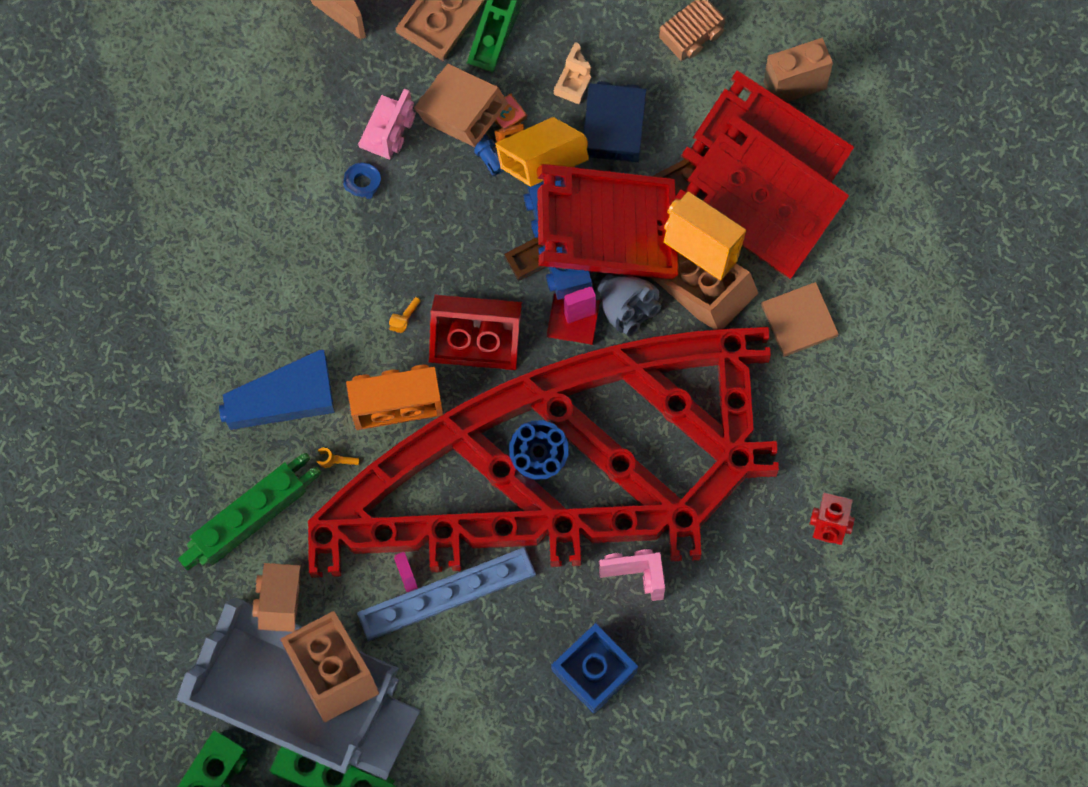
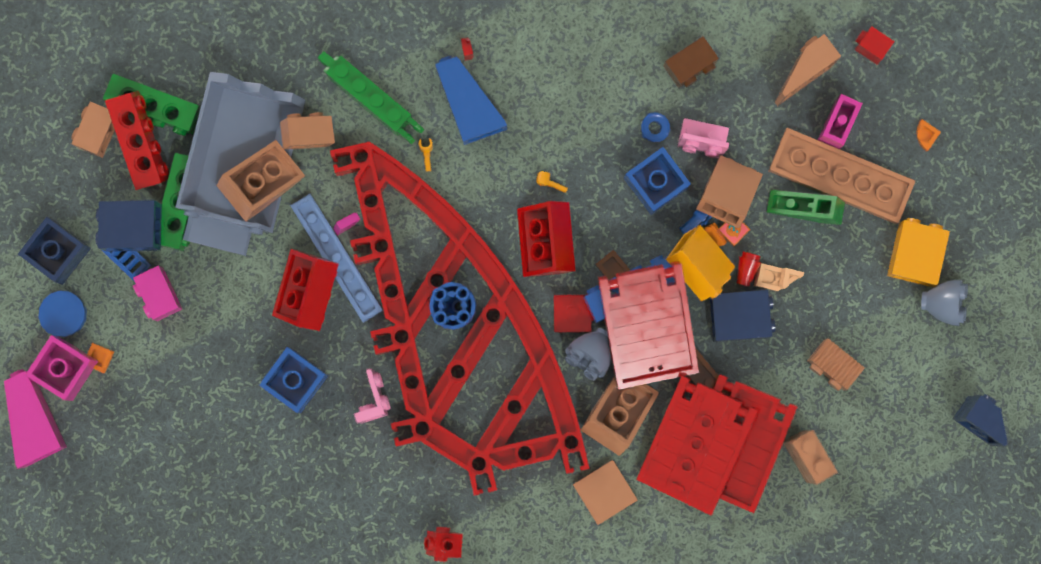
camera: 75 degrees right, 10 degrees up
(216, 385) = (467, 48): none -> red tile
(291, 122) = (691, 62): none -> reddish brown brick
(394, 397) = (478, 186): orange brick -> none
(430, 186) = (657, 180): none -> blue brick
(481, 636) = (305, 290): none -> red slope
(557, 105) = (747, 268): none -> red cone
(579, 304) = (578, 315): dark pink tile -> none
(703, 235) = (648, 403): light orange brick -> none

